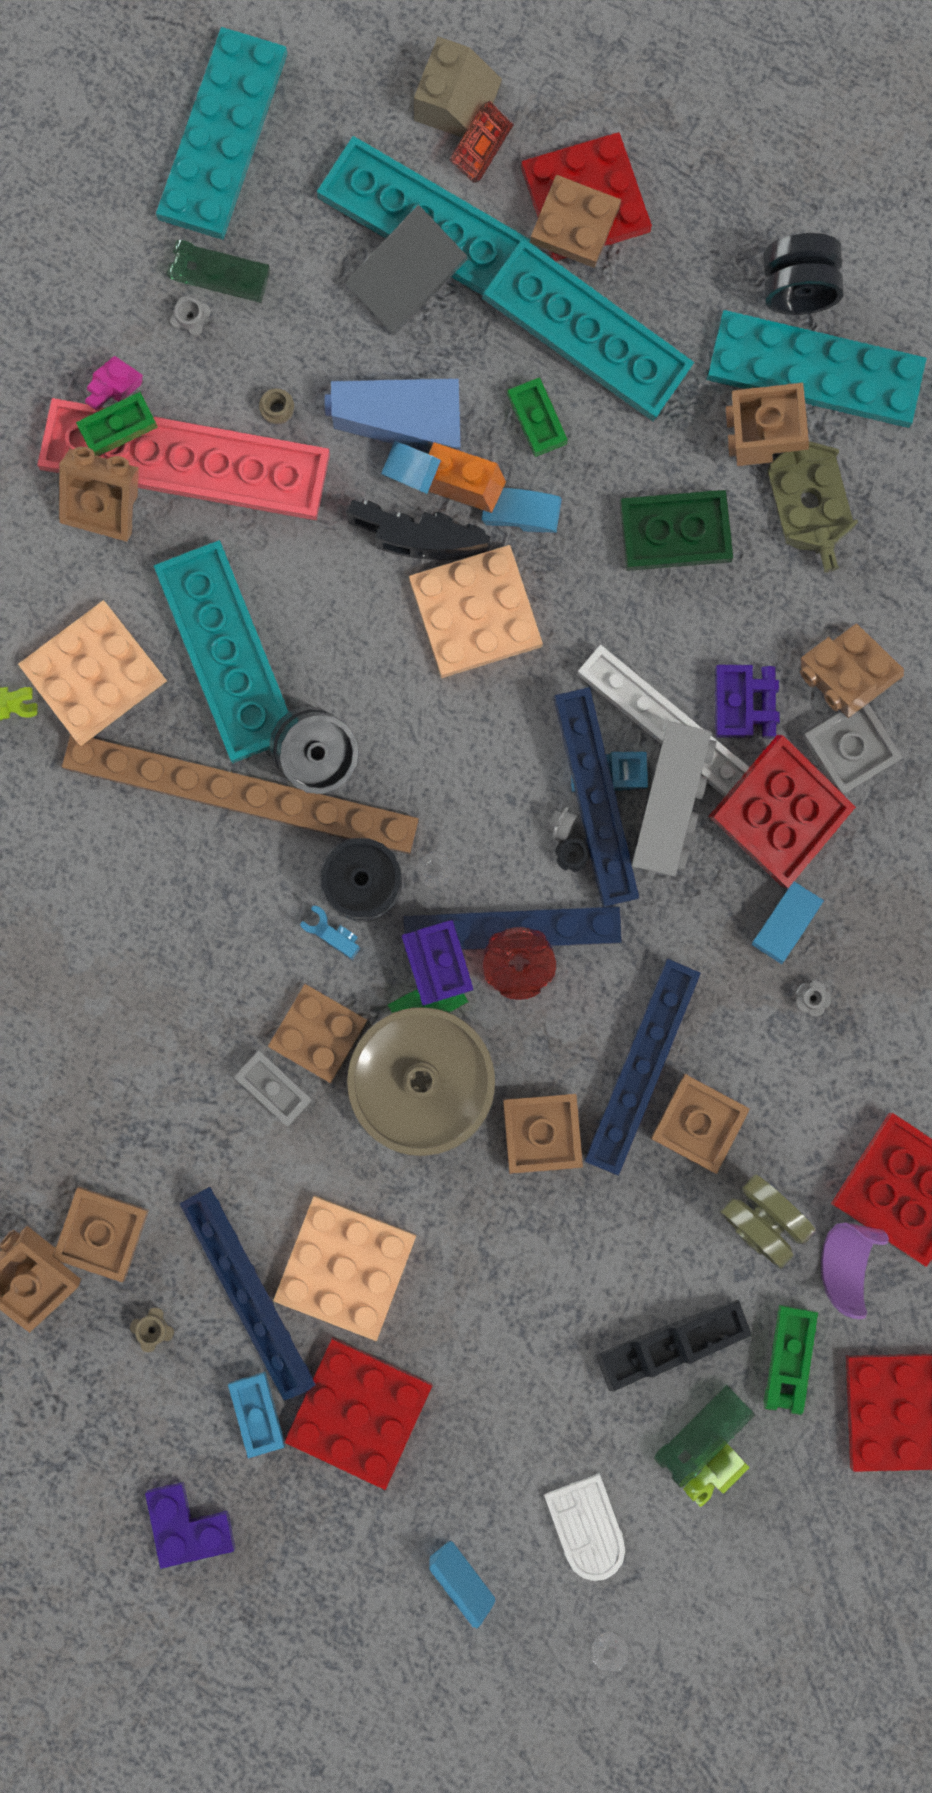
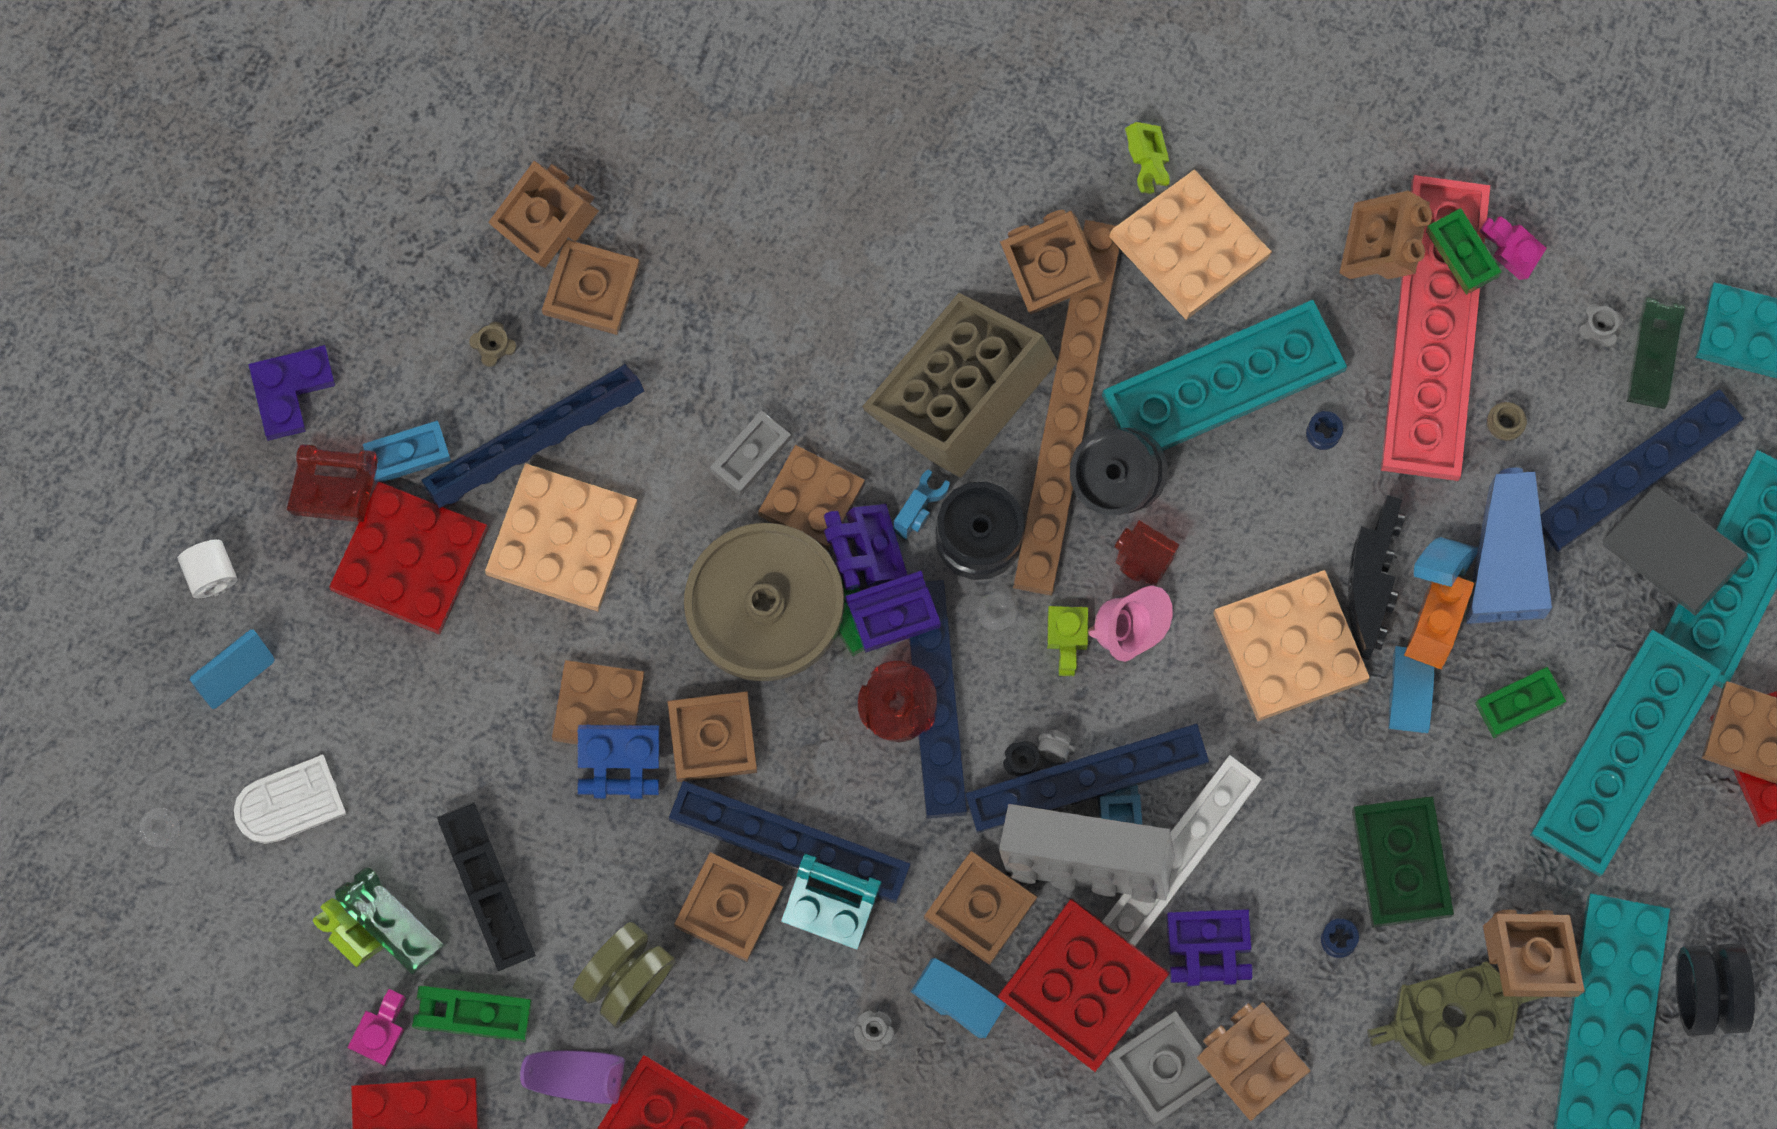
camera: 90 degrees right, 10 degrees down
(103, 800) = (1050, 261): none -> medium nougat plate
(215, 890) = (961, 383): none -> dark tan slope
(285, 572) = (1317, 439): none -> dark blue bush
(297, 1489) = (328, 495): none -> clear red plate
(326, 295) = (1639, 470): none -> dark blue plate
(364, 1609) = (207, 569): none -> white piece
(370, 976) = (874, 541): none -> dark purple plate
(388, 733) = (1145, 553): none -> clear red brick
(454, 749) = (1133, 622): none -> bright pink piece
(455, 807) = (1067, 632): none -> lime plate
(508, 1237) = (596, 697): none -> medium nougat plate
(553, 1220) = (618, 747): none -> blue plate
(707, 899) = (980, 907): none -> medium nougat plate
(708, 1035) = (827, 913): none -> plate
(732, 597) = (1331, 949): none -> dark blue bush
(804, 1445) = (377, 1034): none -> dark pink plate

